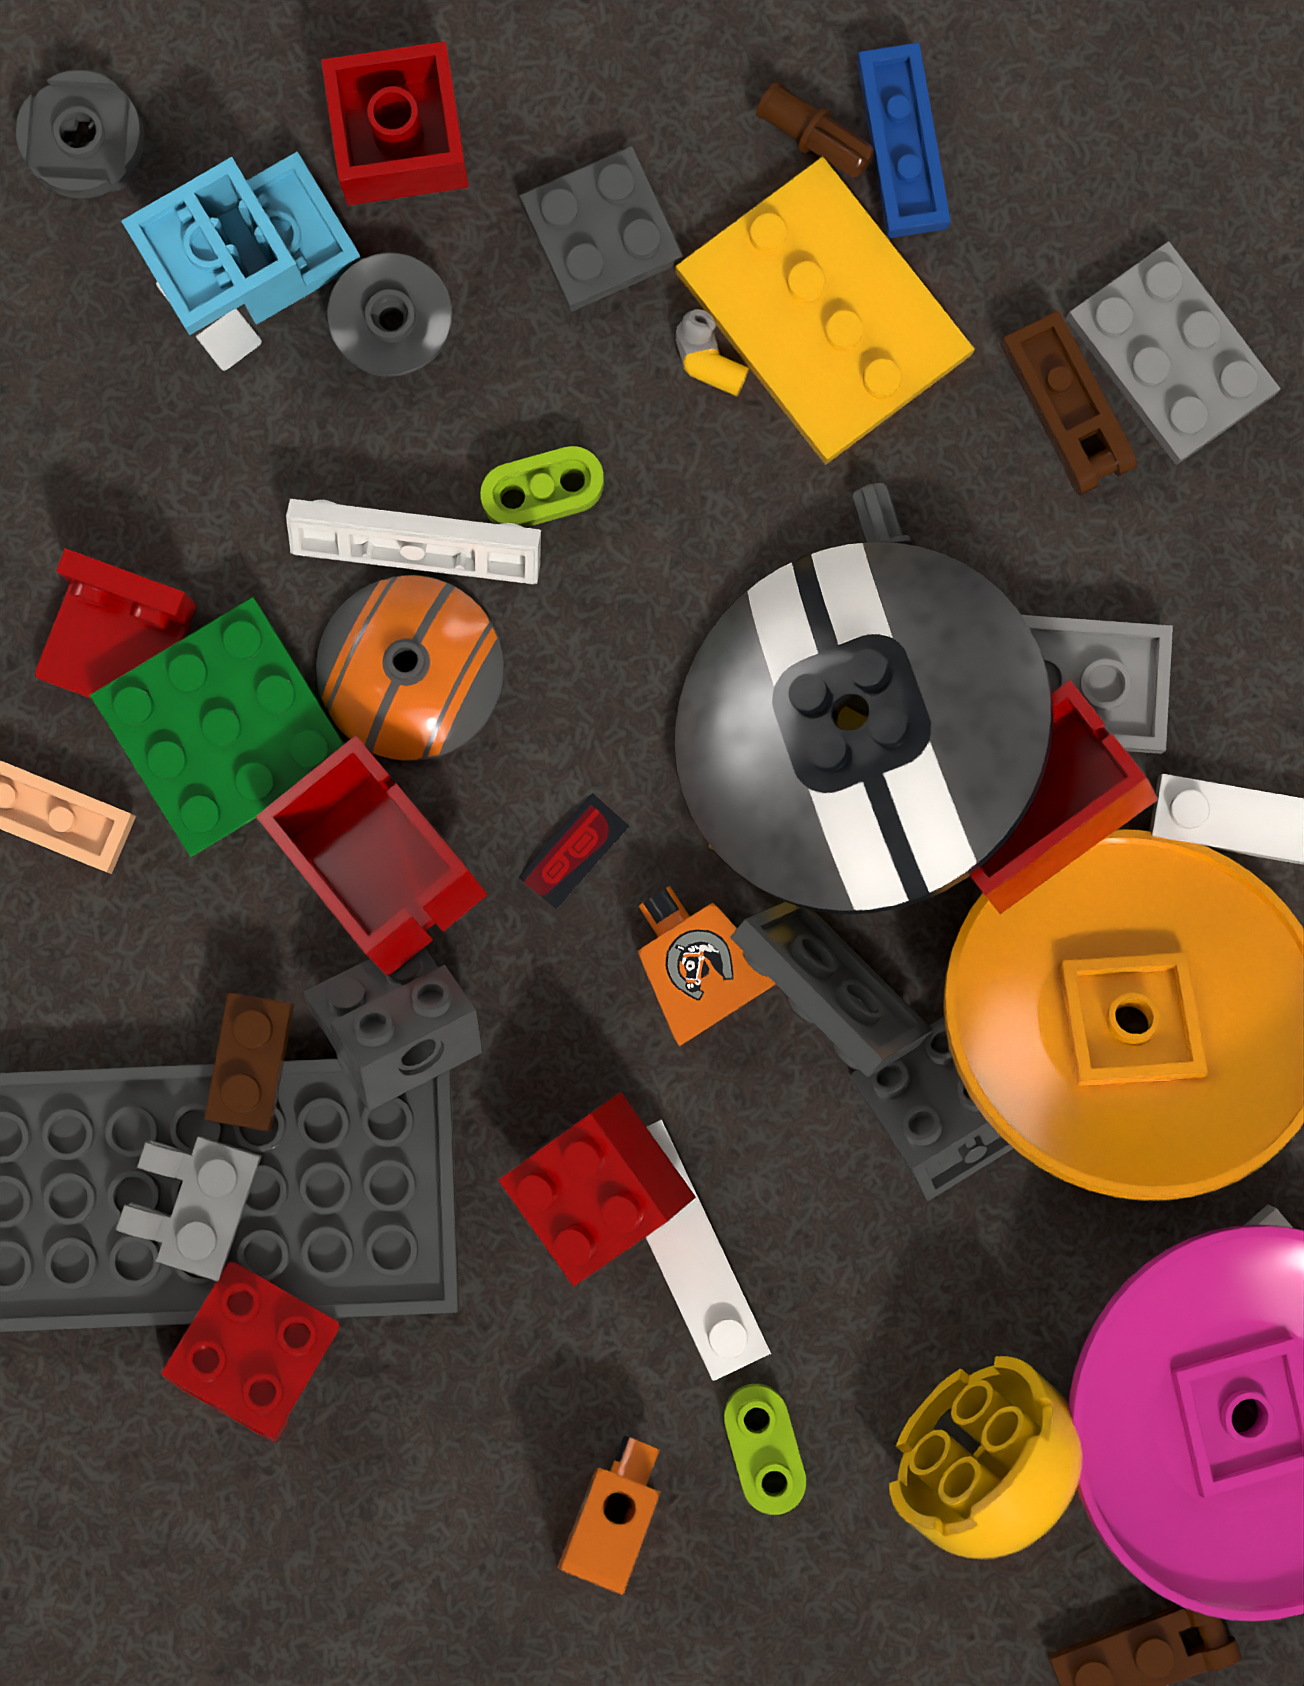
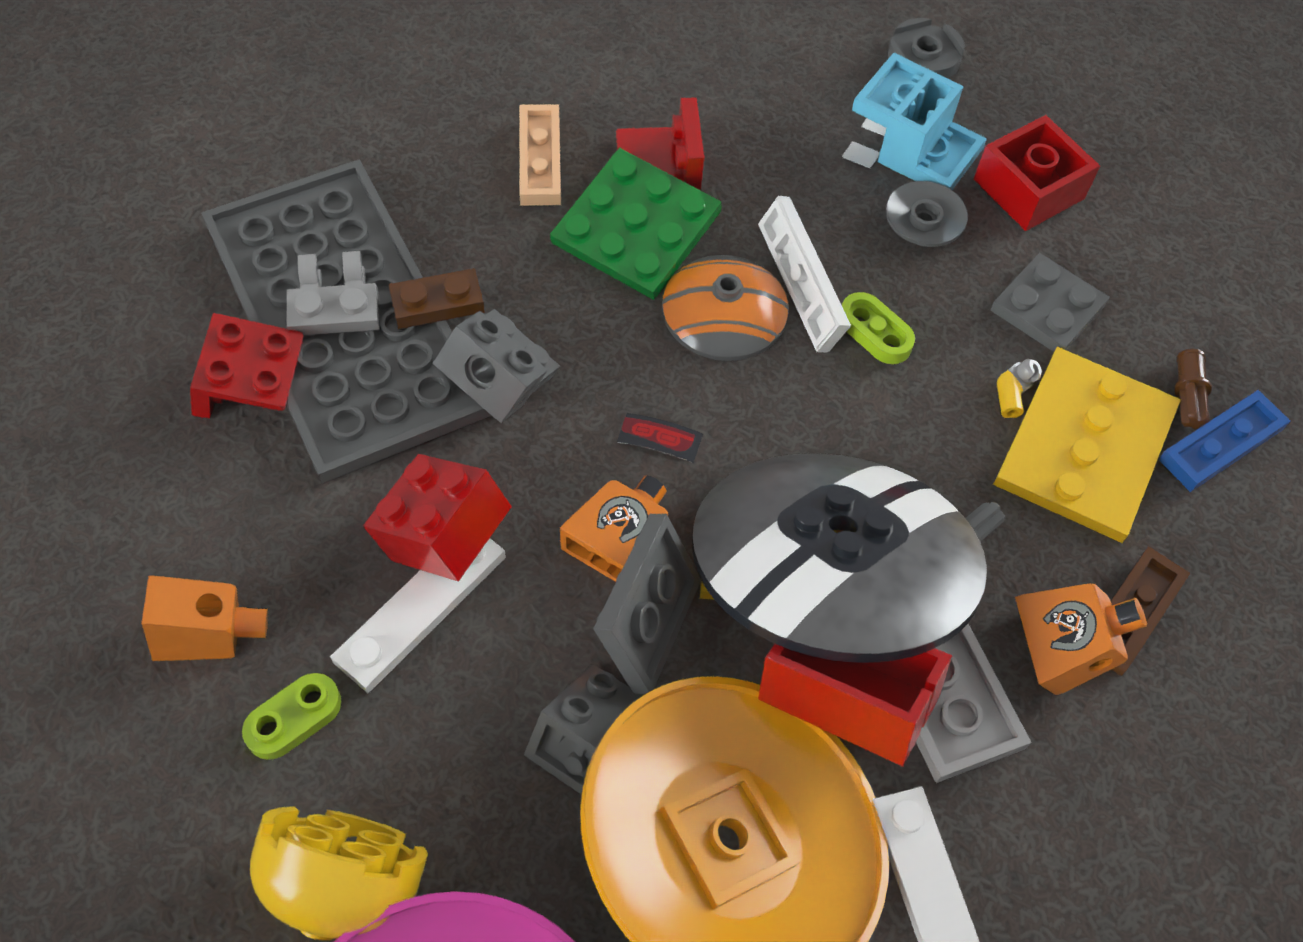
camera: 60 degrees right, 25 degrees down
(371, 856) = (595, 307): red piece -> none
(1077, 501) = (1076, 633): none -> orange torso
(1172, 353) = (1214, 670): light grey plate -> none

